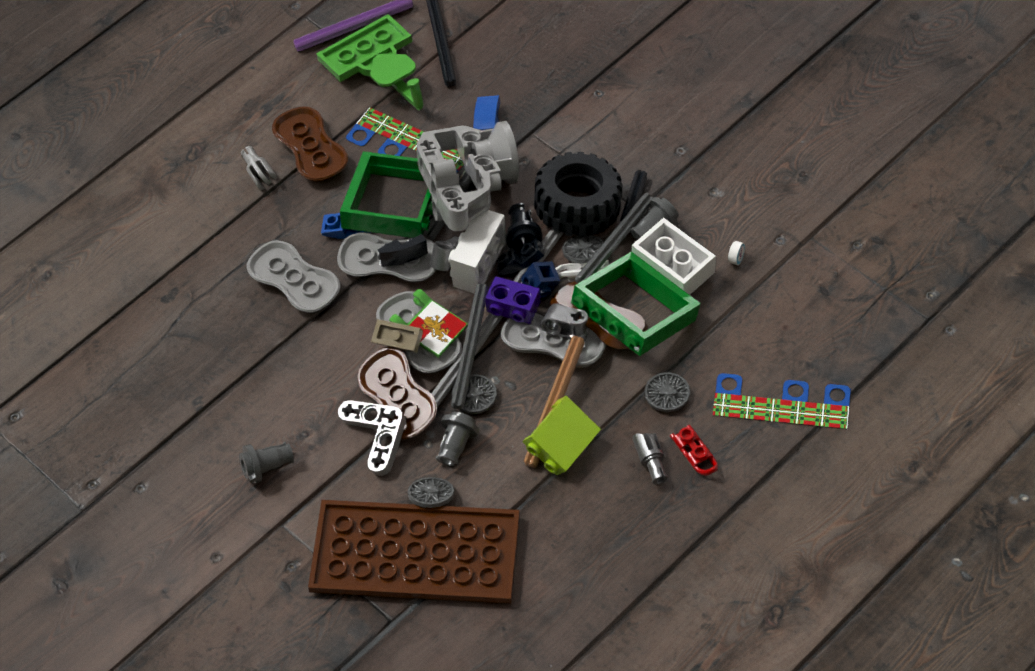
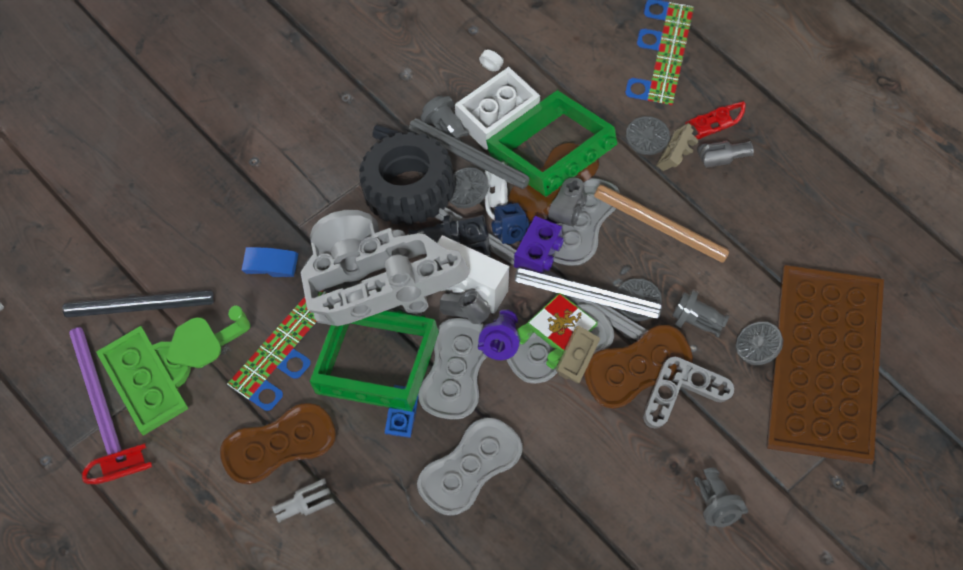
camera: 90 degrees left, 5 degrees up
(286, 43) = (111, 468): none -> red piece
(396, 254) = (461, 348): black slope -> none
(412, 278) = (500, 338): none -> dark purple piece
(561, 436) = (709, 215): lime panel -> none
(641, 412) = (676, 147): none -> dark tan plate

